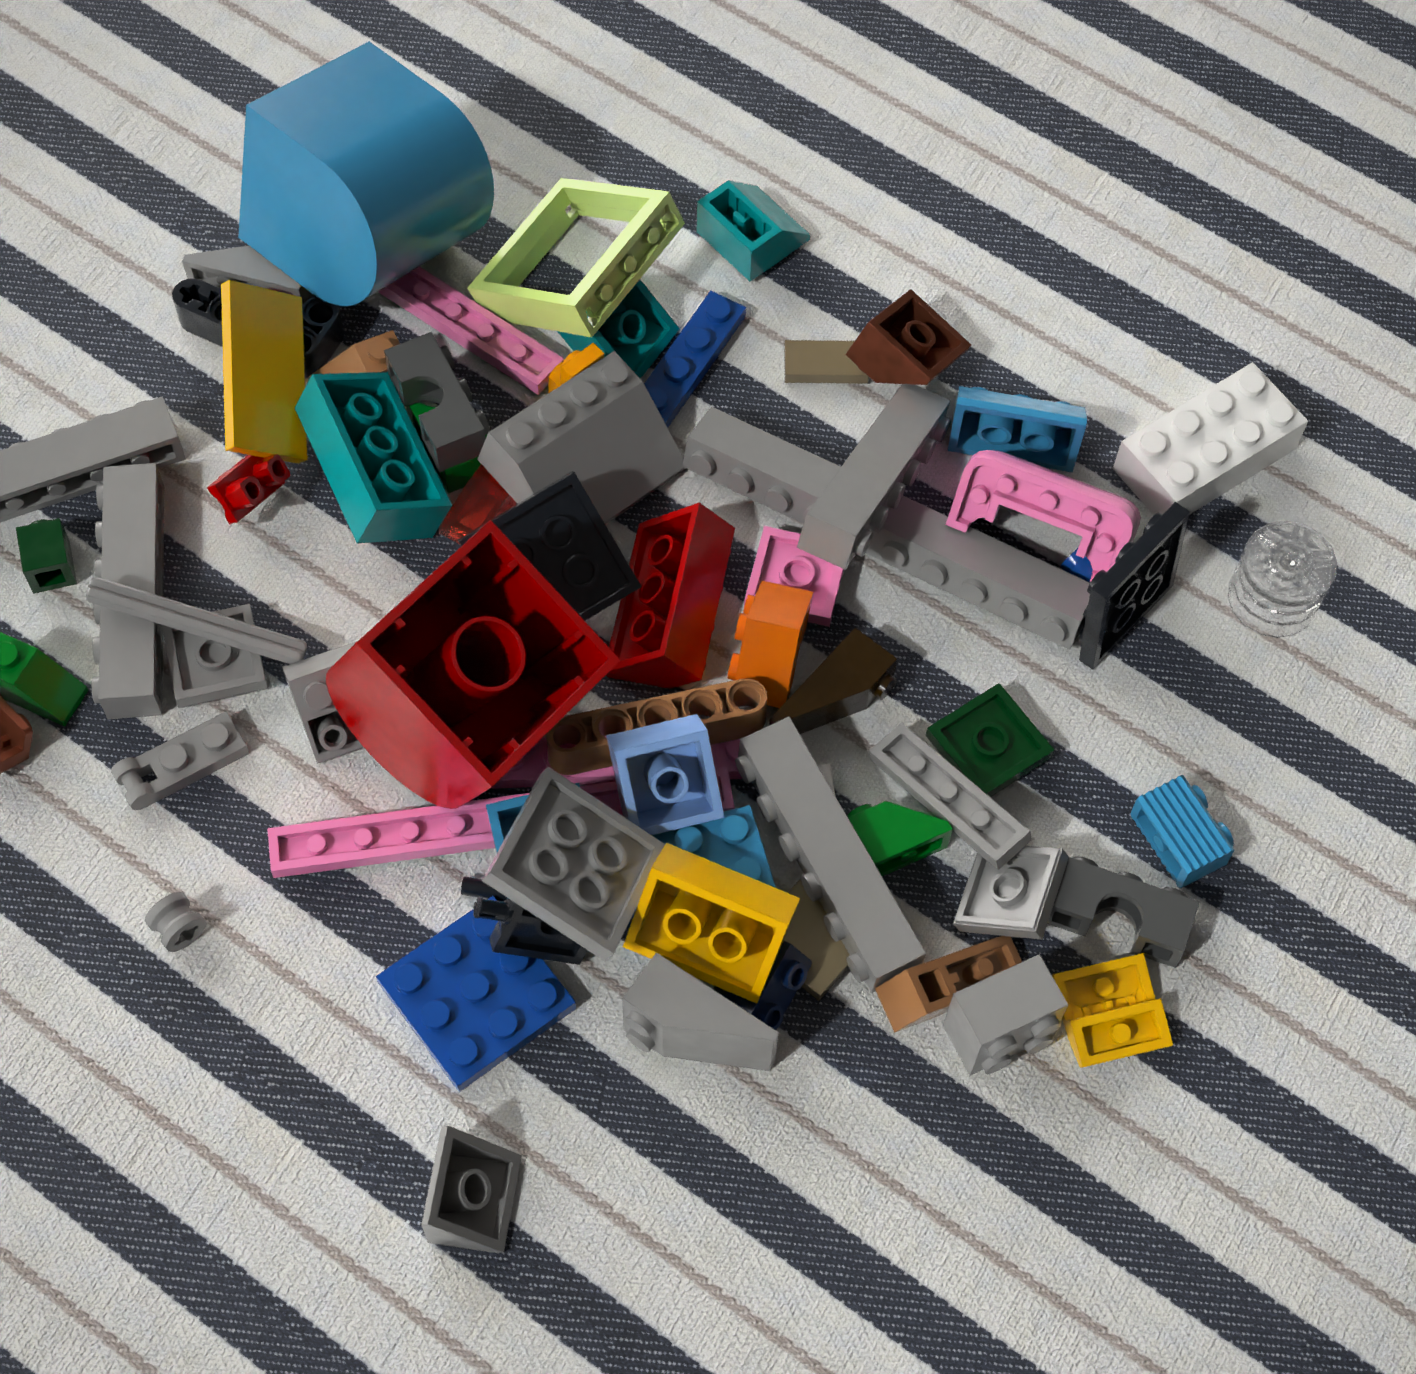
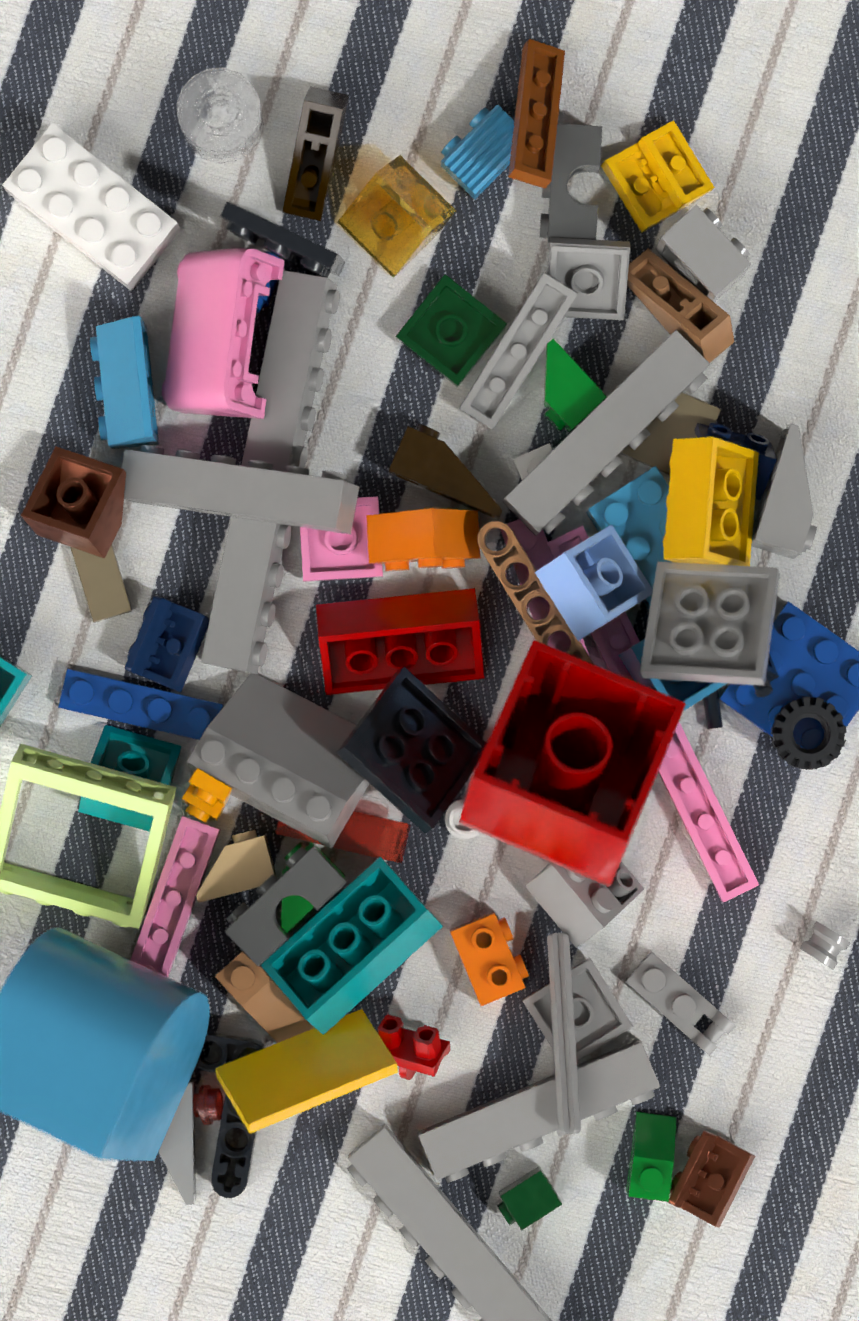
camera: 105 degrees left, 25 degrees up
(307, 586) = (488, 958): none -> orange brick
(411, 938) = (833, 733): none -> black tyre
(493, 386) = (239, 867): none -> tan slope
(742, 389) = (167, 643): none -> dark blue bracket
(1133, 724) = (396, 215): none -> clear yellow slope
(1215, 882) = (536, 114): none -> dark orange plate
(1228, 665) = (315, 153): none -> dark brown slope

